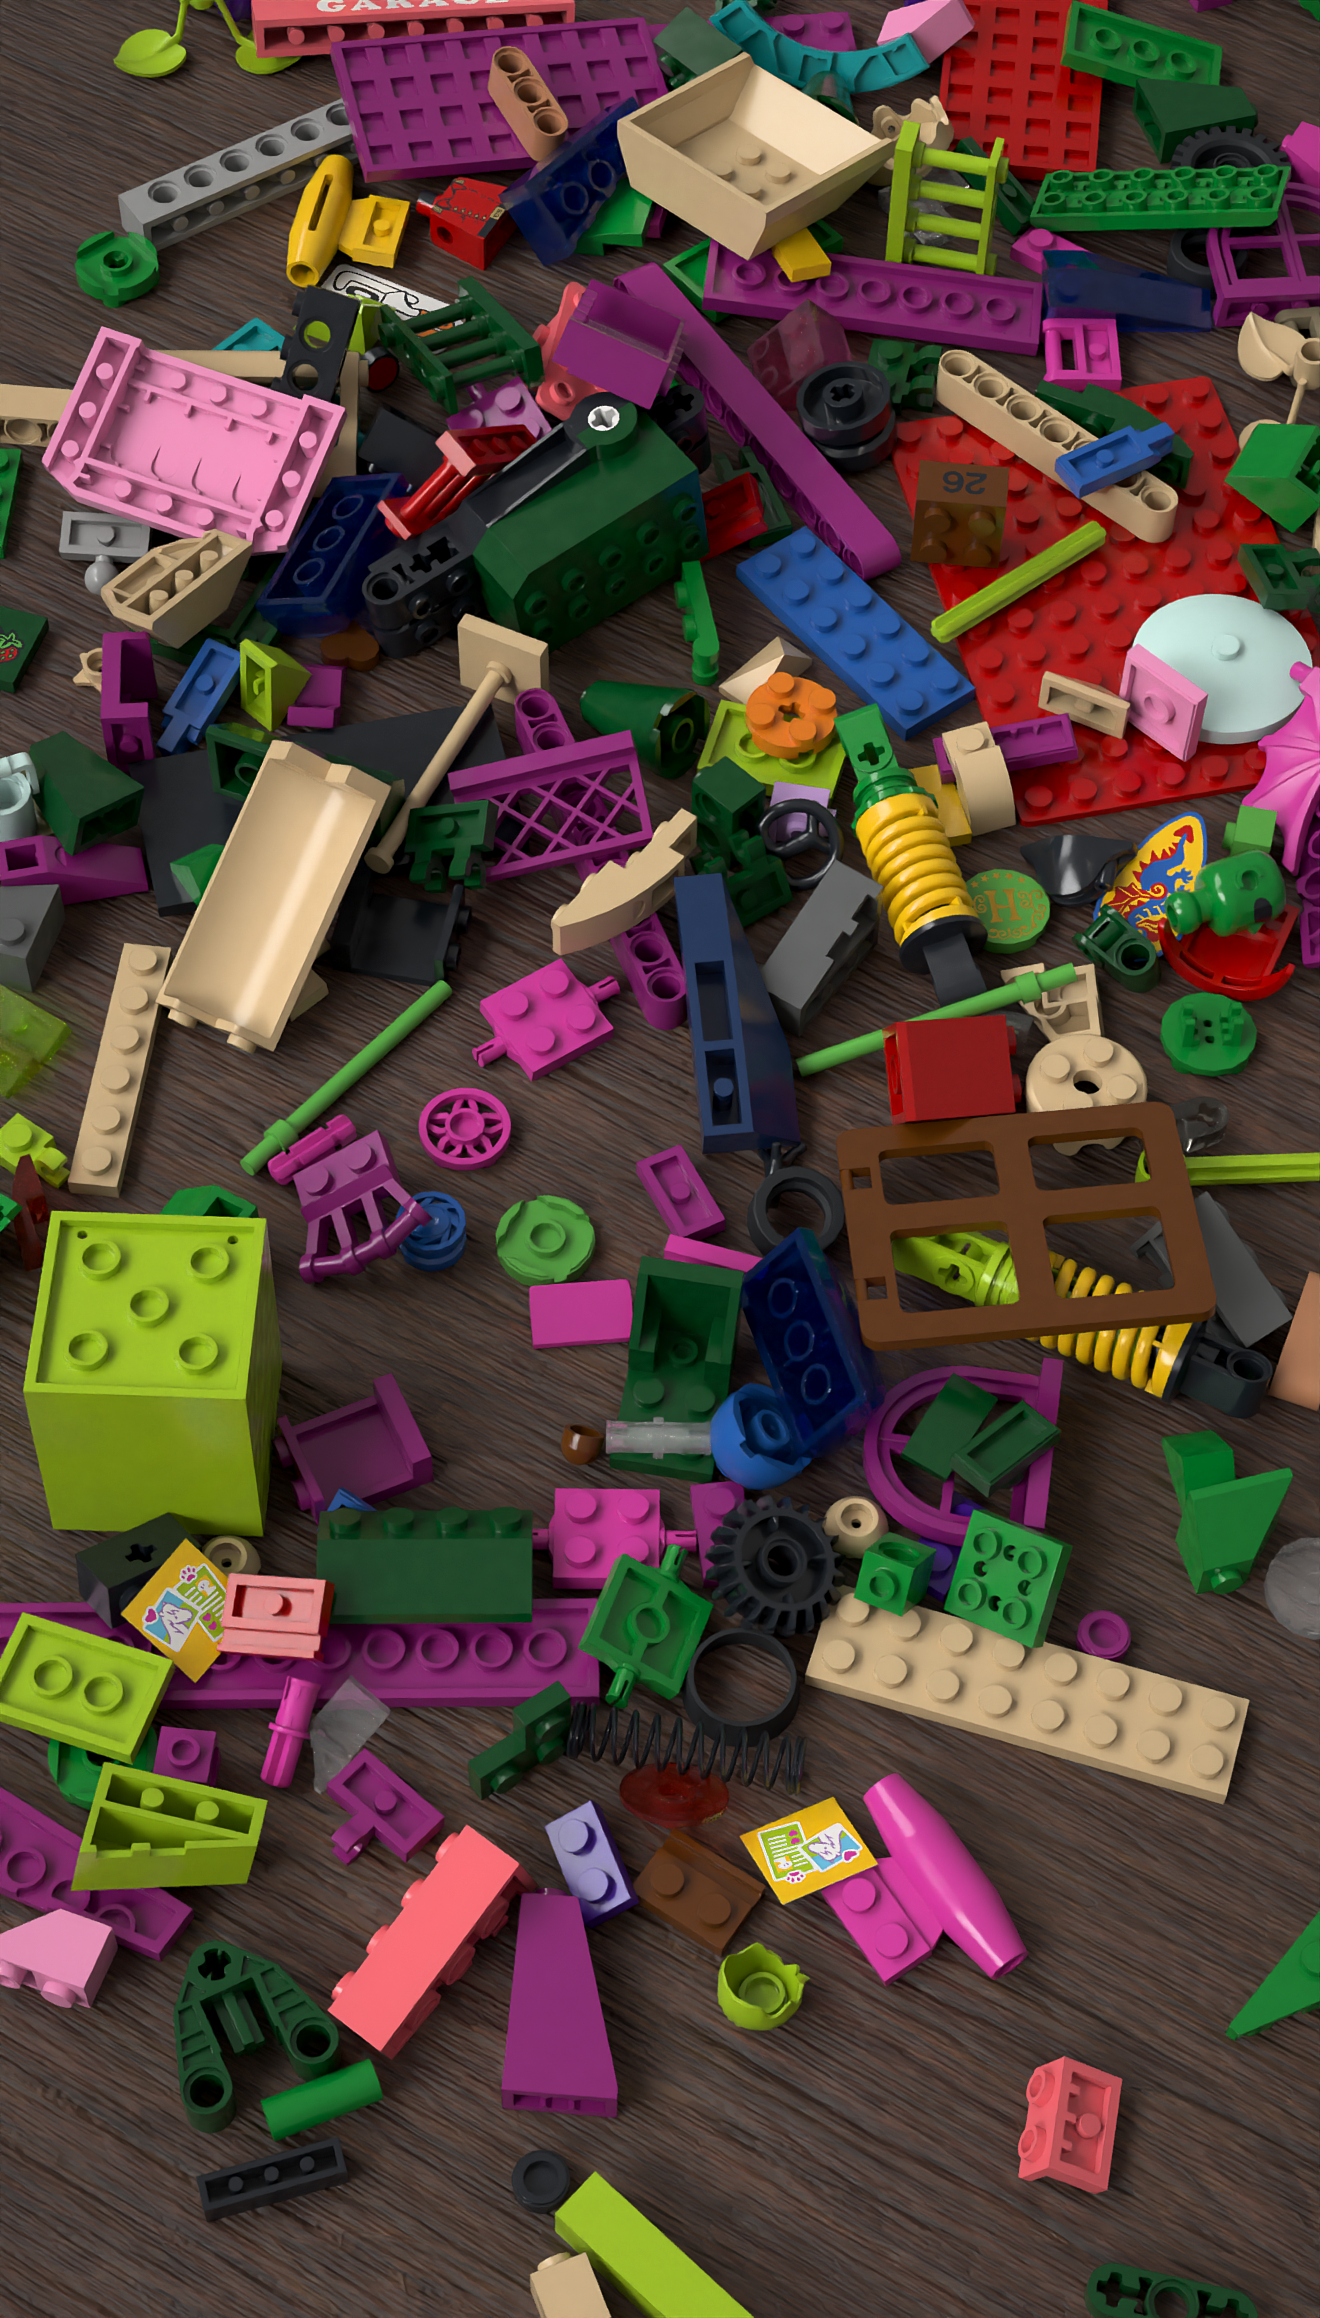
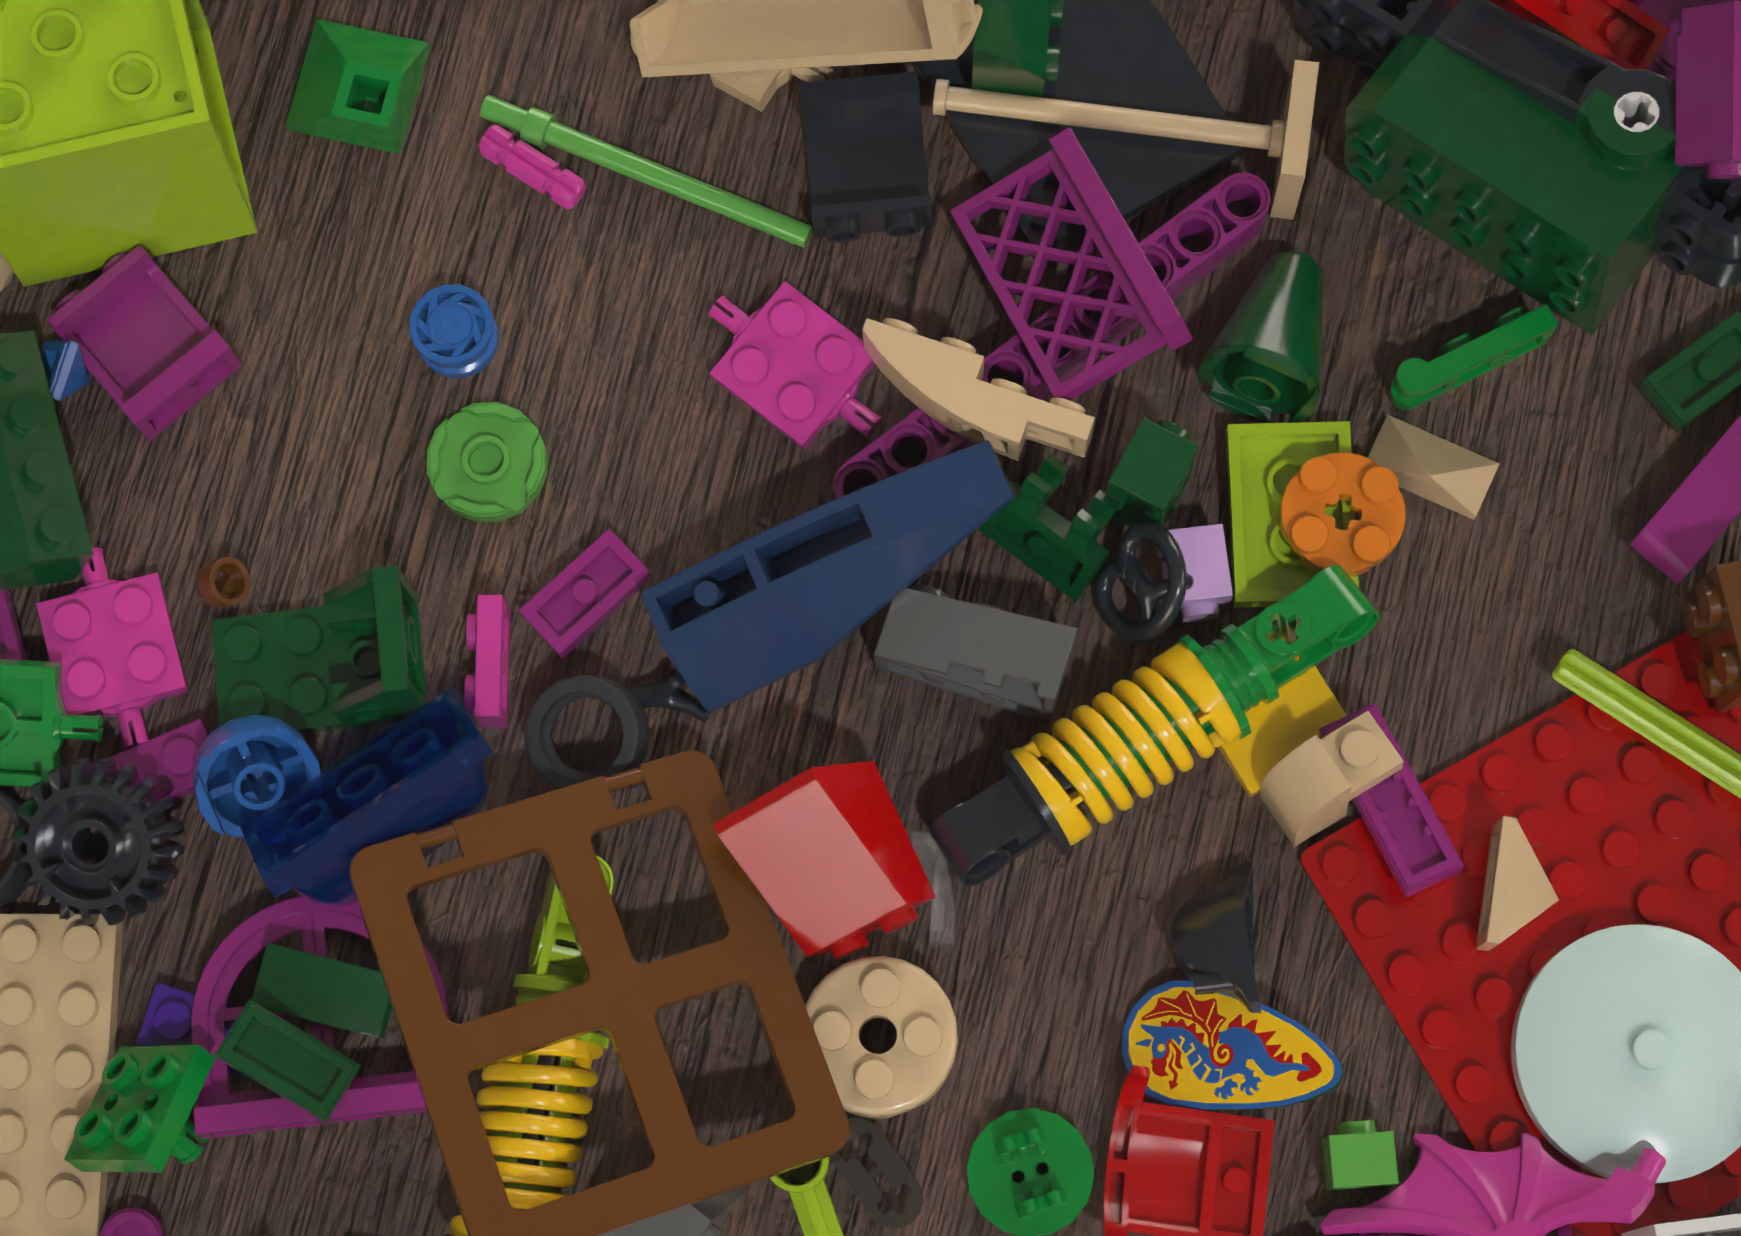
camera: 80 degrees right, 20 degrees up
(340, 1188) = (484, 229): magenta plate -> none
(448, 830) = (981, 169): dark green plate -> none
(464, 1129) = (612, 323): dark pink wheel -> none
(580, 1313) = (393, 526): dark pink slope -> none
(658, 1437) = (227, 659): clear pin -> none
(733, 514) = (1657, 333): red plate -> none
(855, 633) = (1541, 559): blue plate -> none
(859, 1510) = (180, 912): tan plate -> none
(895, 1573) = (147, 978): green brick -> none
(1010, 908) = (1143, 865): bright green tile -> none
(1025, 988) = (976, 918): bright green bar -> none
(1065, 1009) = (1014, 978): tan slope -> none
(1114, 944) = (1115, 1022): dark green piece -> none
(1163, 702) = (1514, 983): bright pink tile -> none
(1230, 896) = (1219, 1150): green piece -> none

